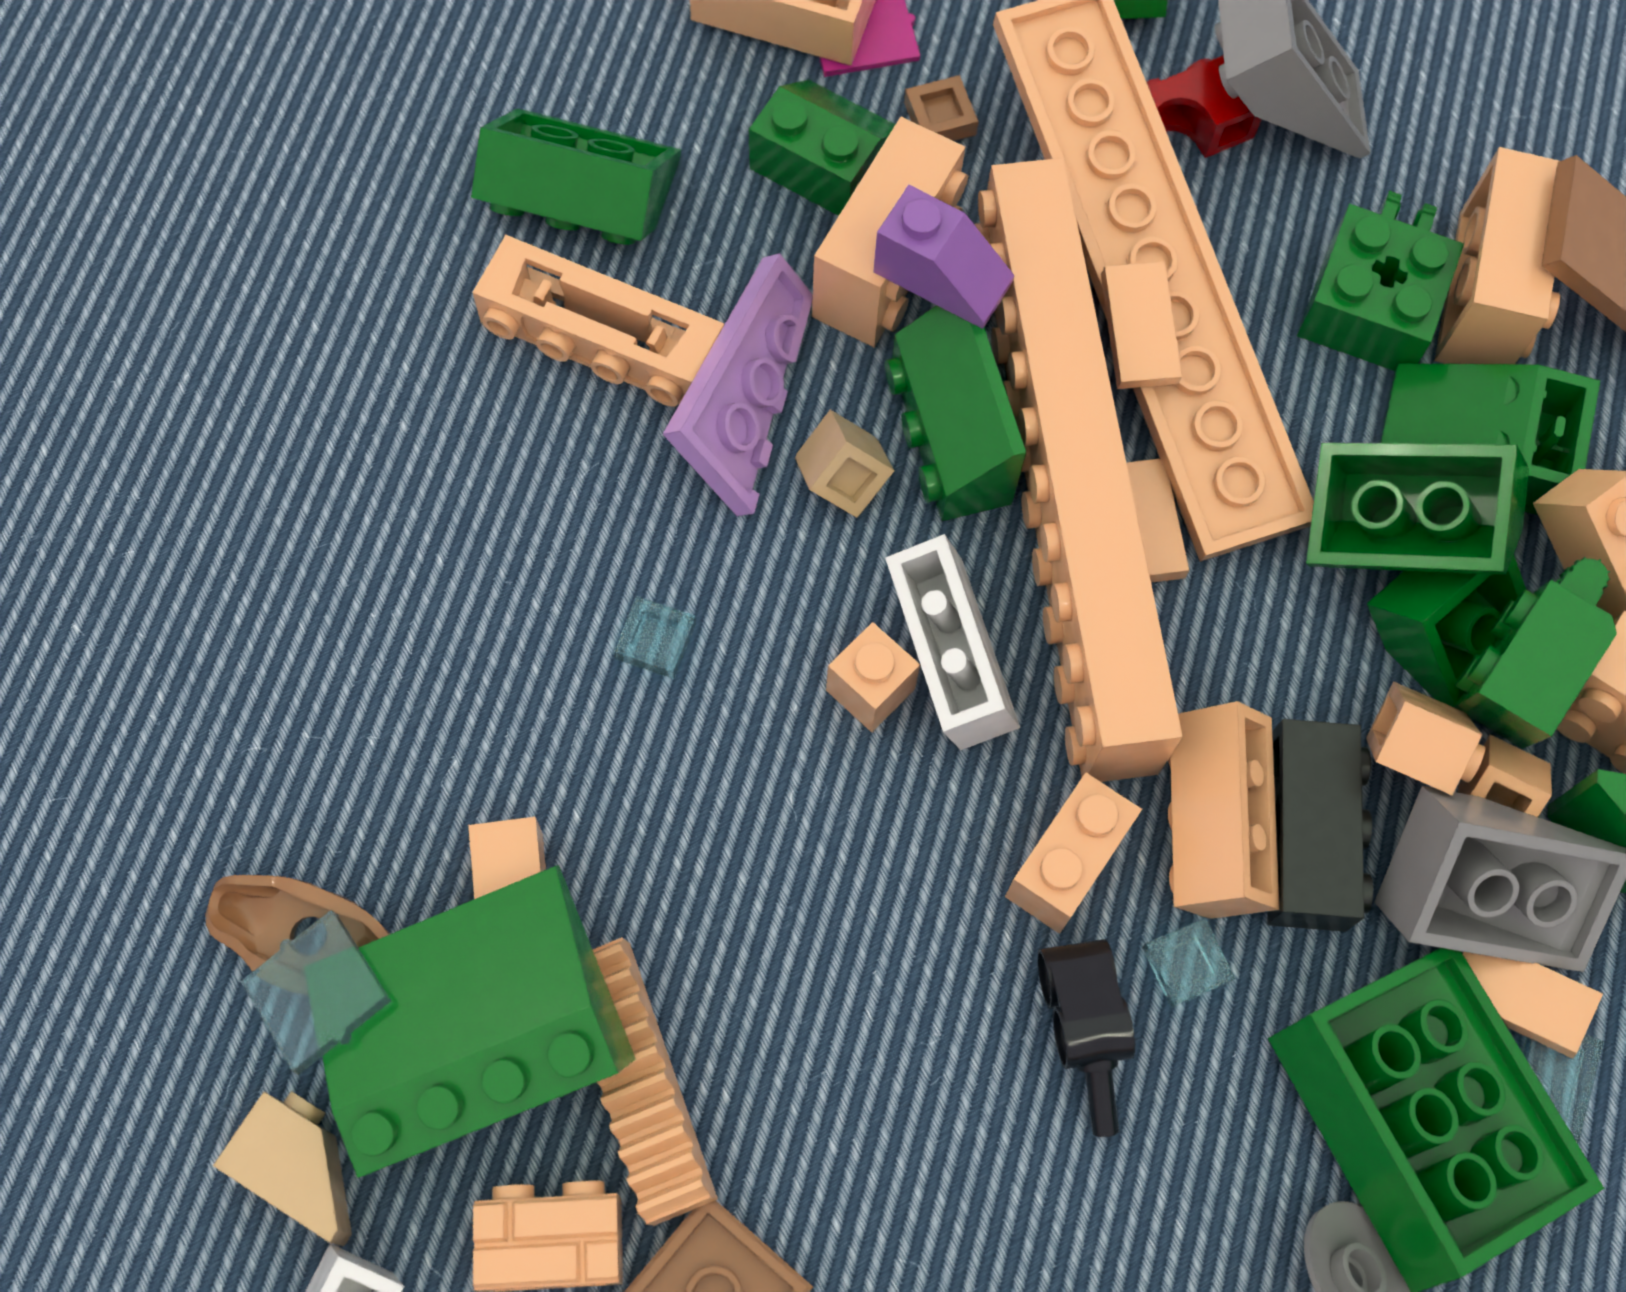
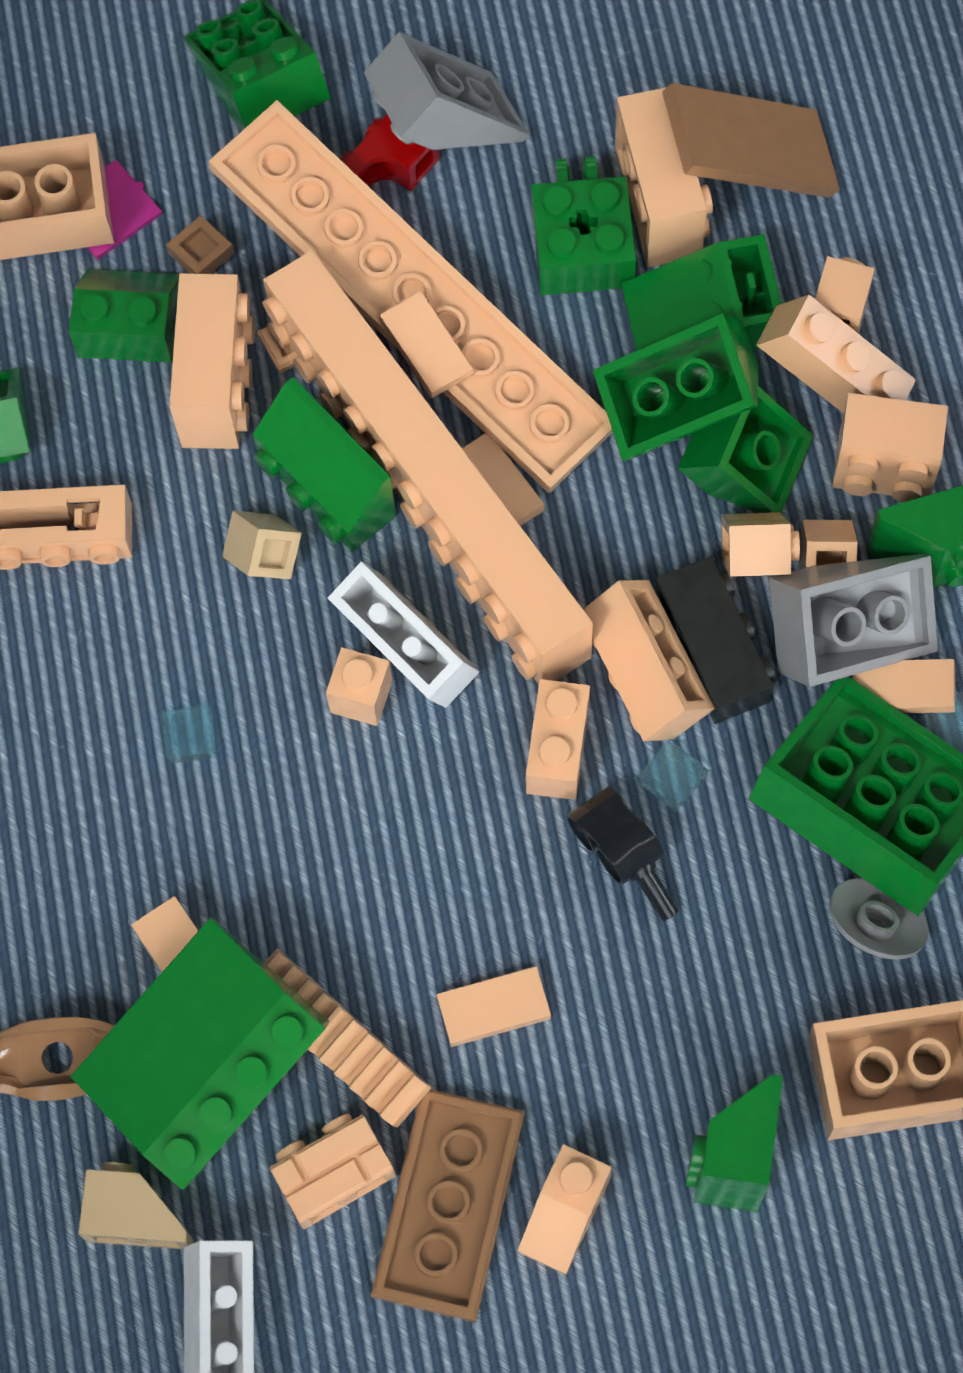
camera: 20 degrees left, 0 degrees up
(315, 992) = (86, 1086): clear light blue piece -> none
(741, 385) = (159, 523): lavender wing -> none
(840, 1136) = (493, 1006): none -> light nougat tile
(941, 257) = (263, 366): medium lavender slope -> none
(1541, 656) = (809, 451): green hinge -> none

